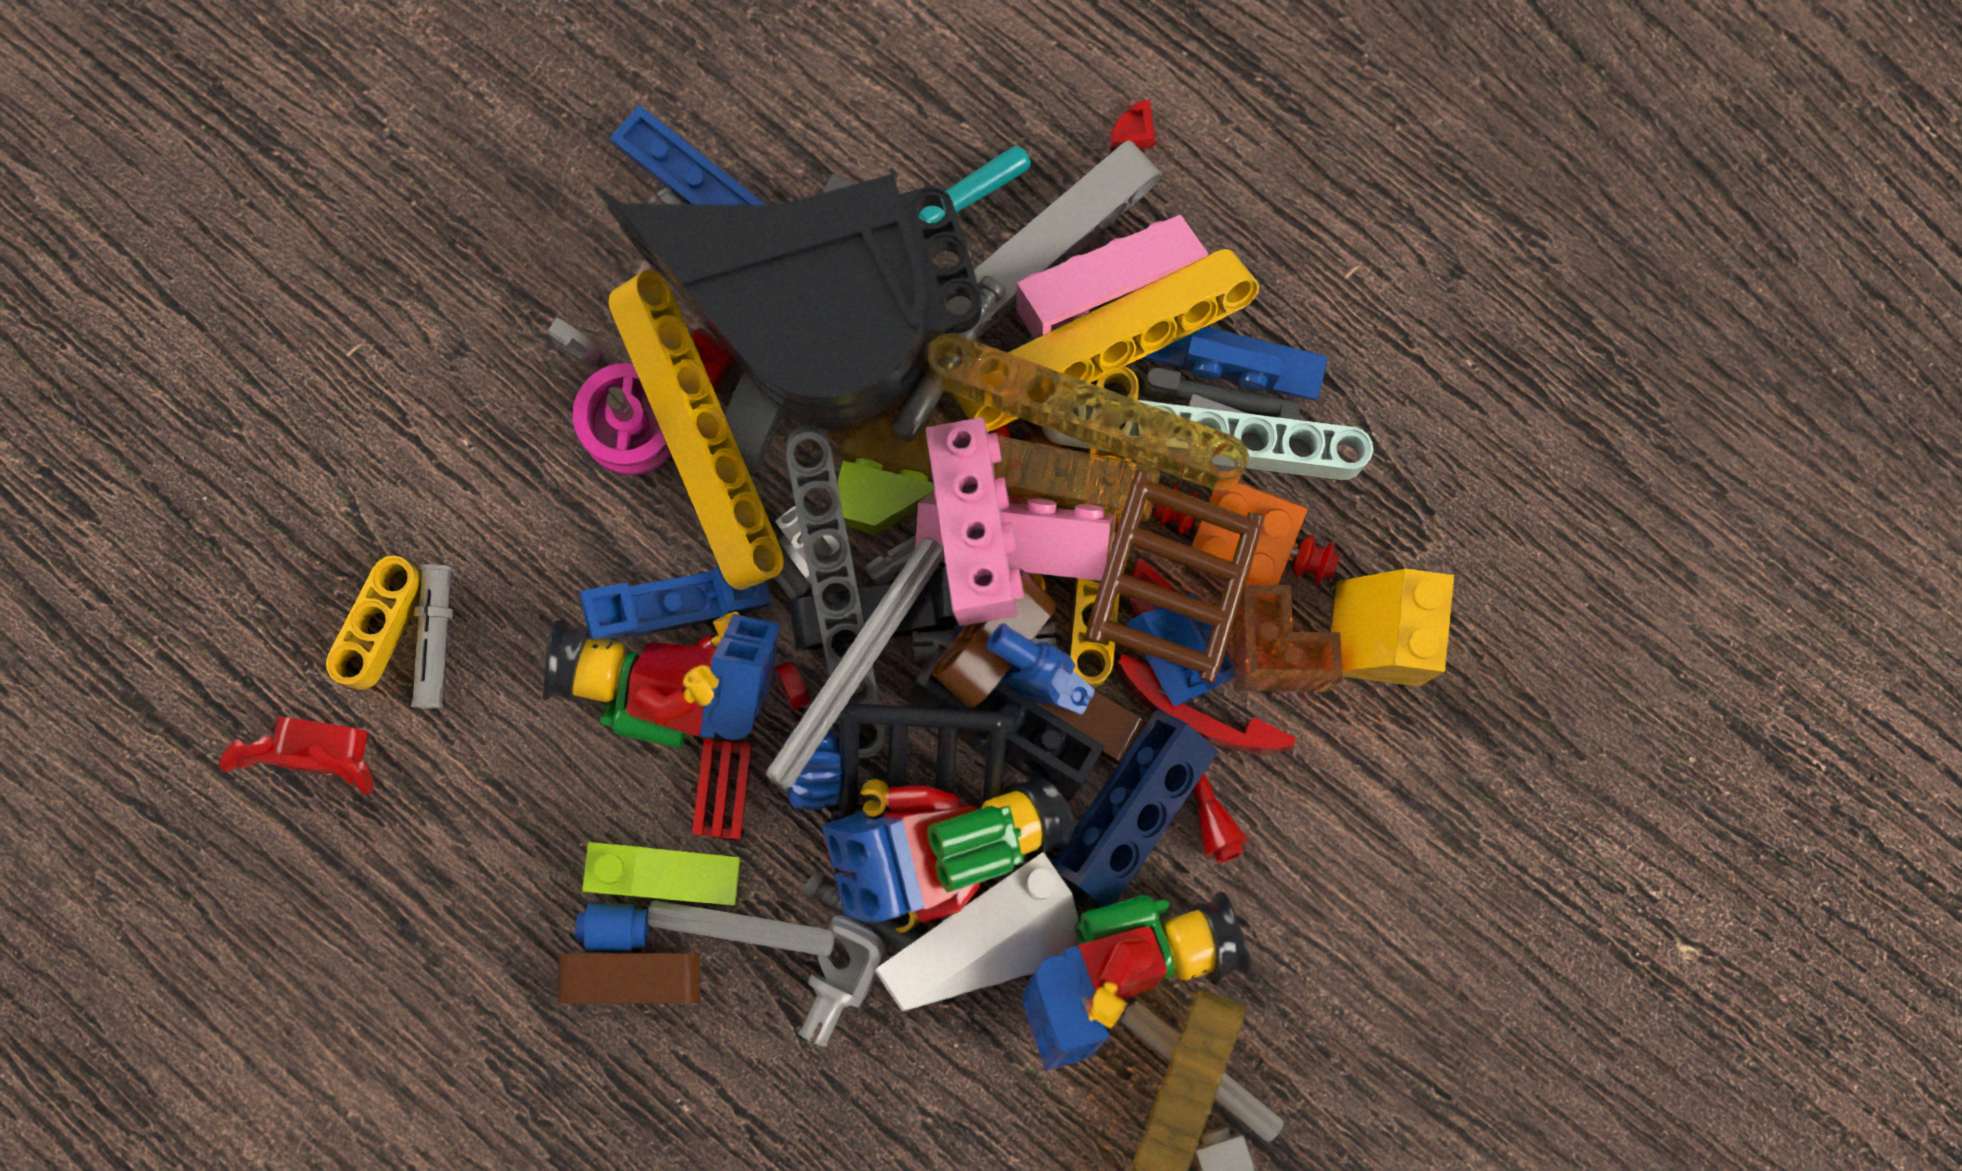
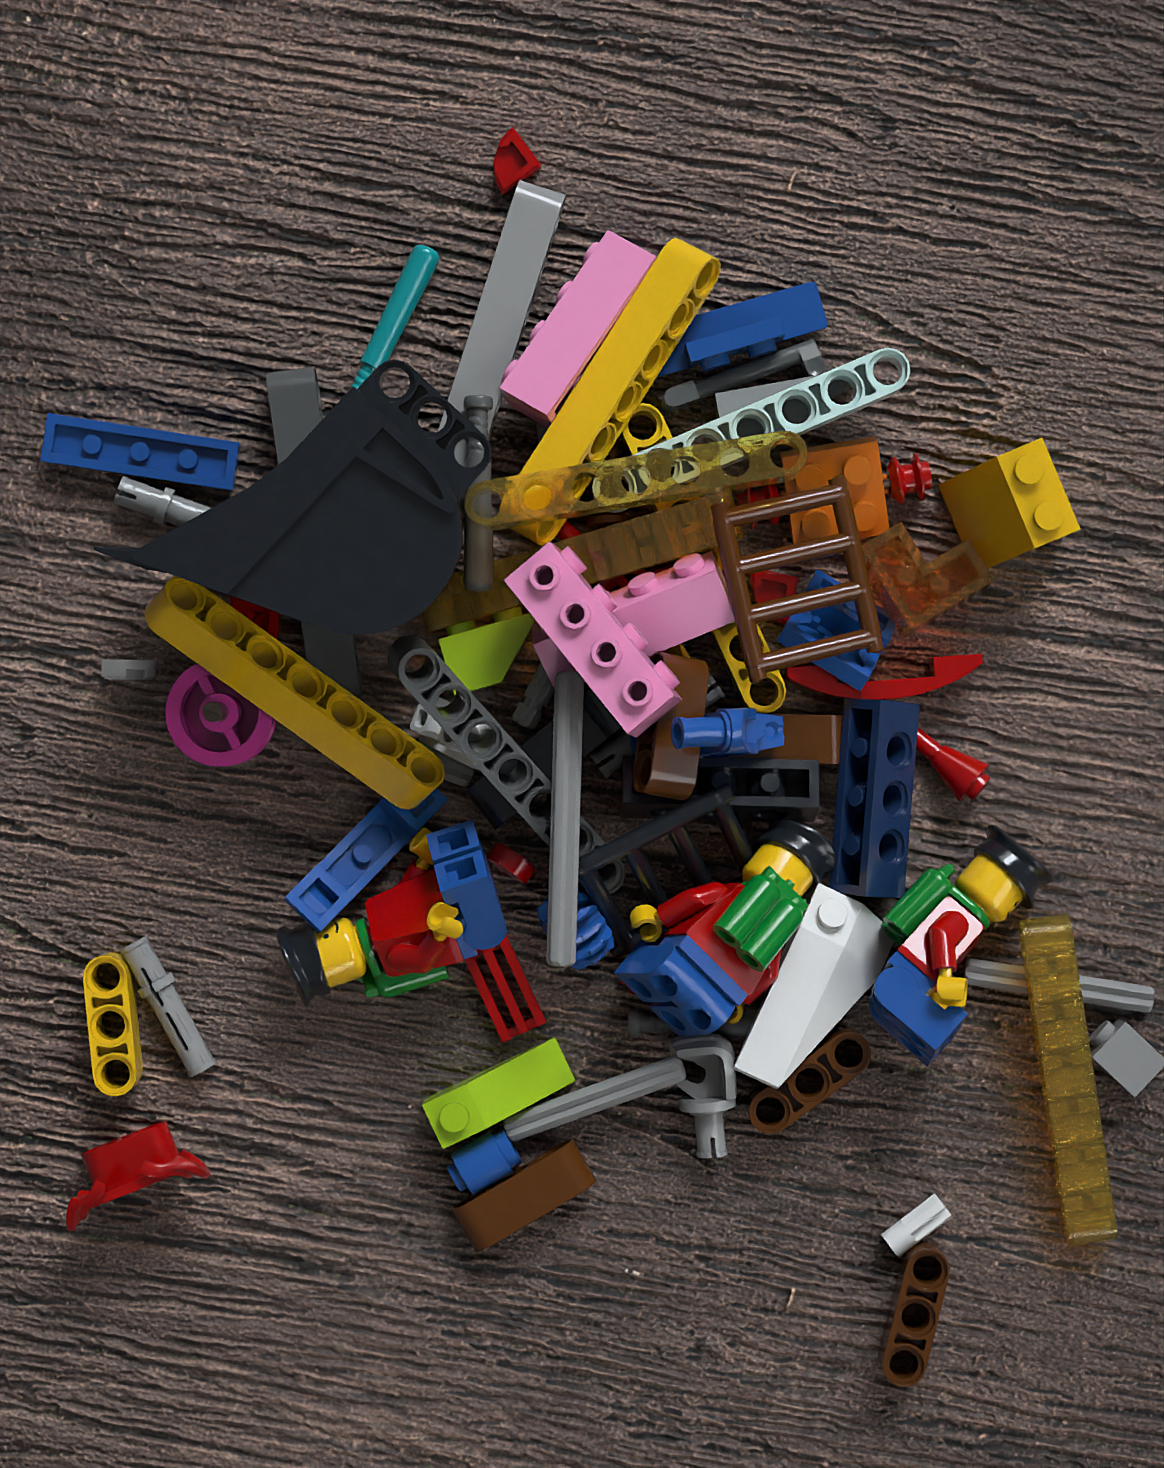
camera: 30 degrees left, 10 degrees up
(911, 1033) = (833, 1077): none -> reddish brown beam

